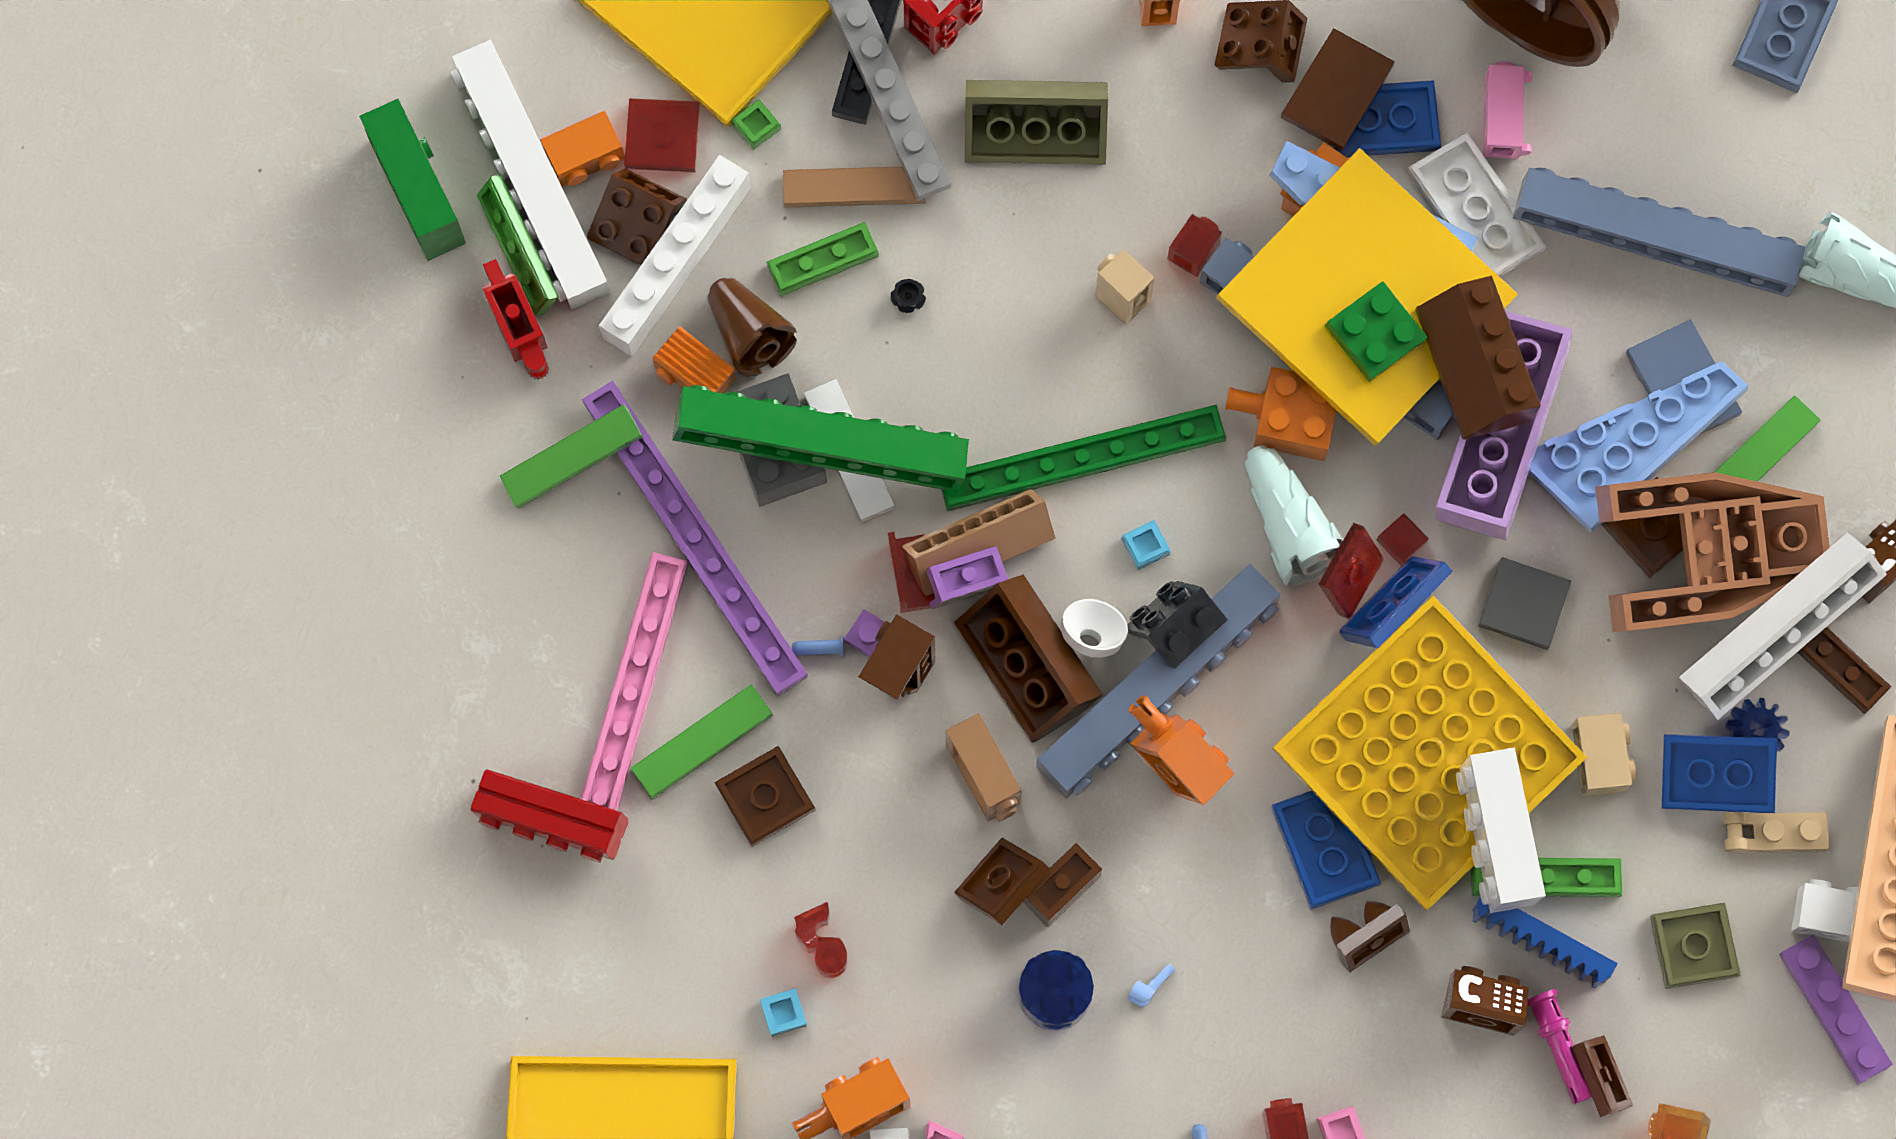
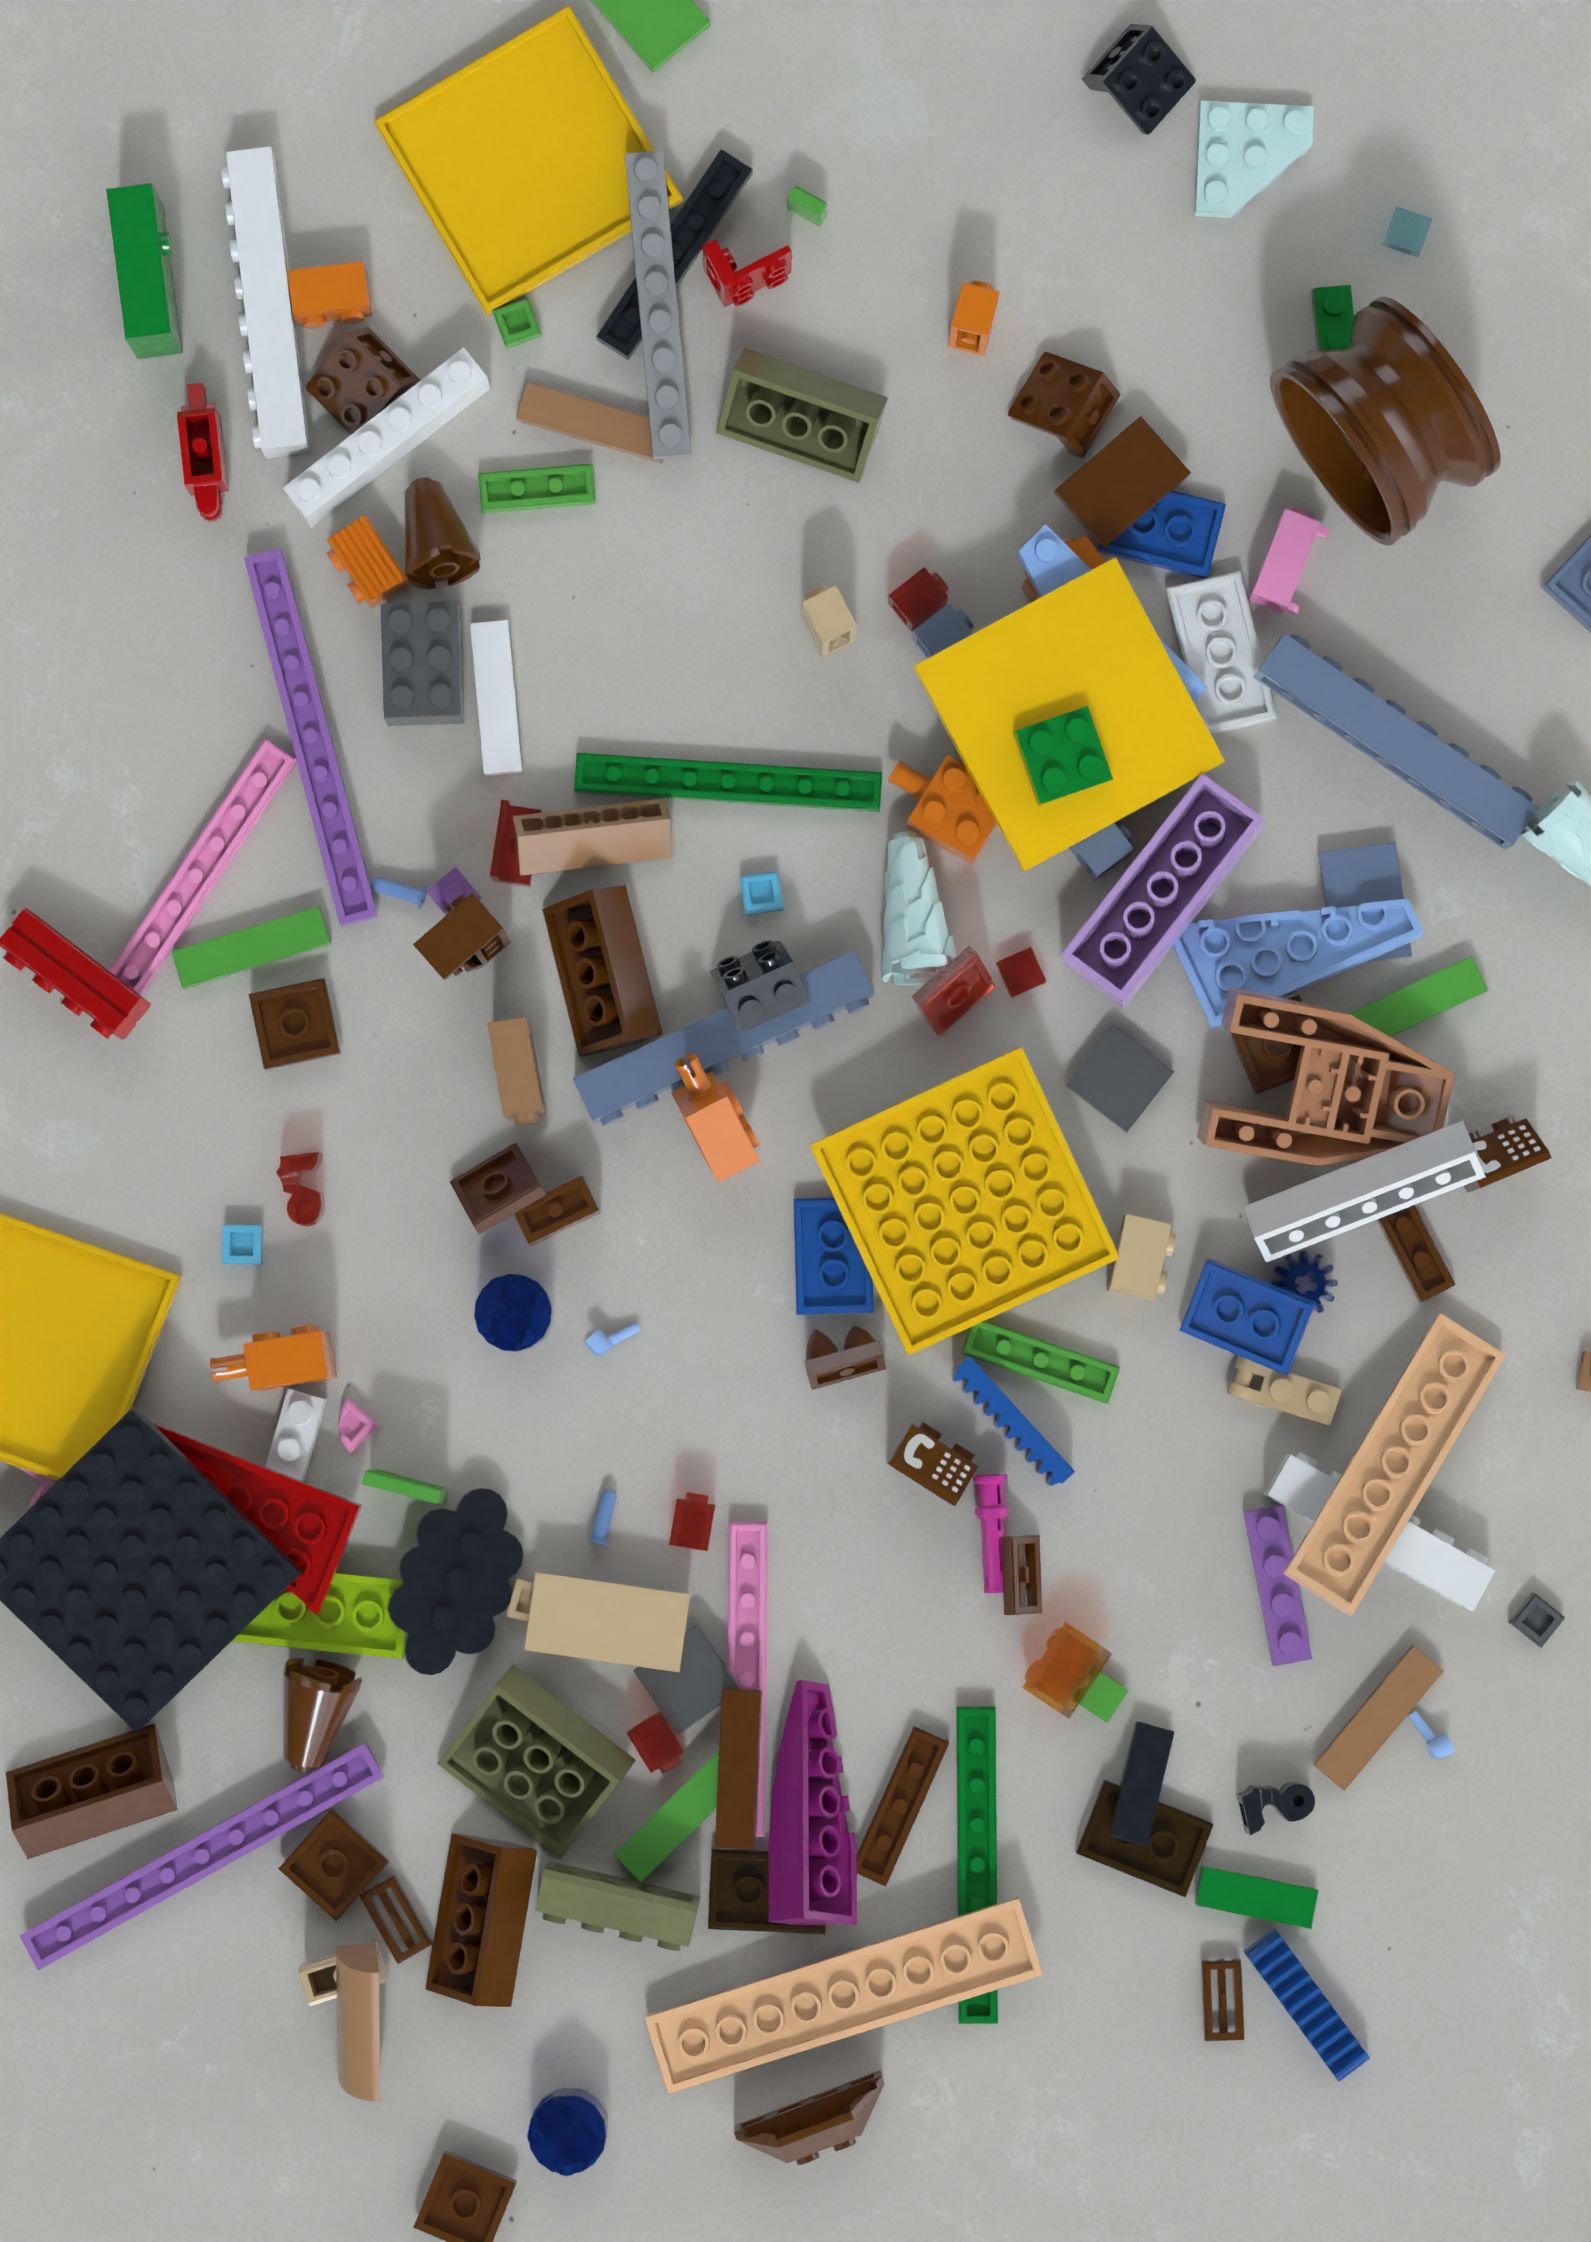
camera: 15 degrees right, 10 degrees up
(517, 245) = (230, 374): bright green tile -> none
(571, 456) = (214, 613): bright green tile -> none
(662, 135) = (417, 303): clear red tile -> none
(820, 438) = (463, 682): green brick -> none
(904, 287) = (600, 553): black plate -> none
(966, 576) = (565, 869): medium lavender panel -> none
(1097, 620) = (684, 954): white piece -> none
(1395, 601) = (986, 1037): blue tile -> none
(1478, 358) = (1154, 818): reddish brown slope -> none
(1501, 830) = (1002, 1307): white brick -> none
(1695, 945) = (1162, 1477): olive tile -> none

